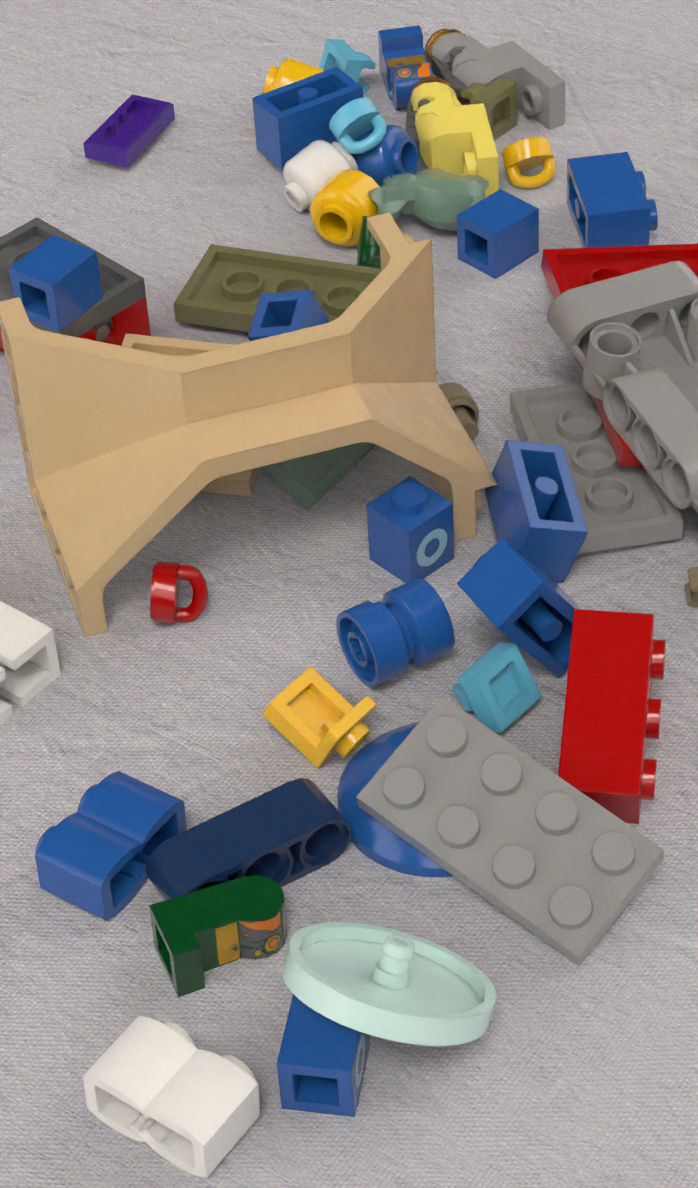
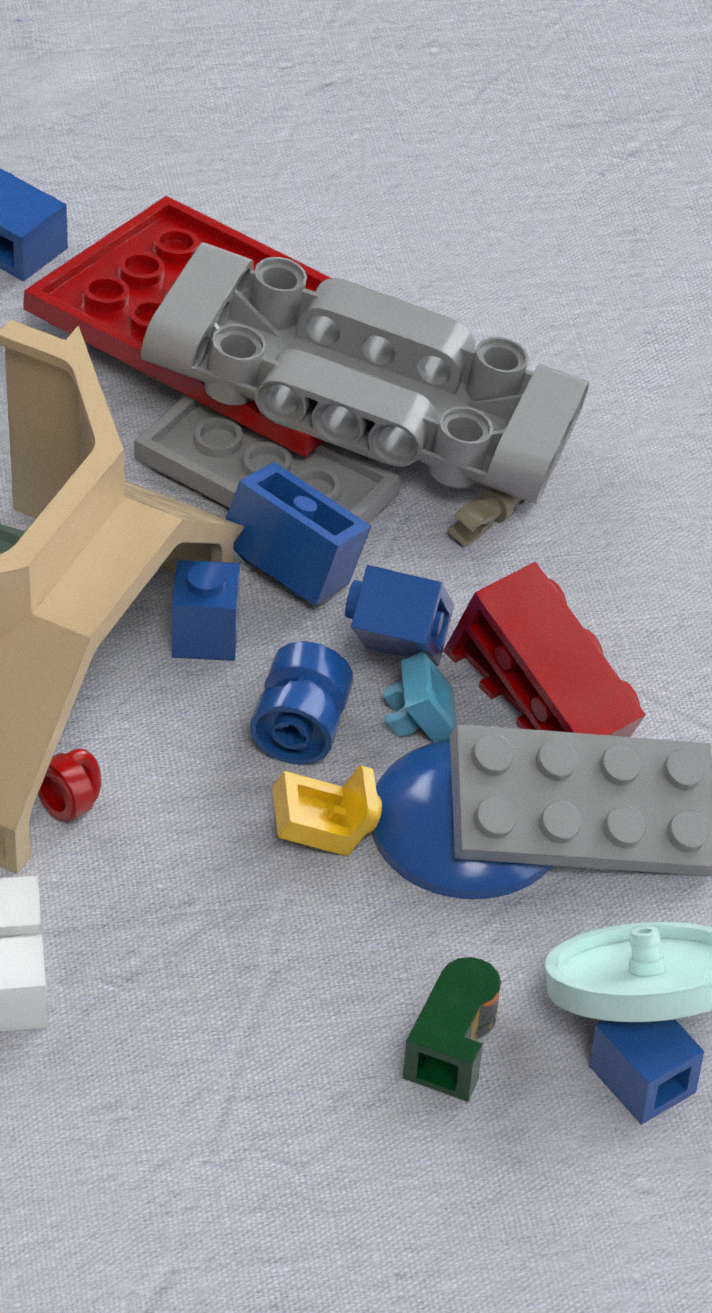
camera: 50 degrees left, 5 degrees up
(103, 848) = (291, 1020): blue brick -> none
(173, 1095) = (581, 1167): white brick -> none
(269, 836) = (401, 951): dark blue beam -> none

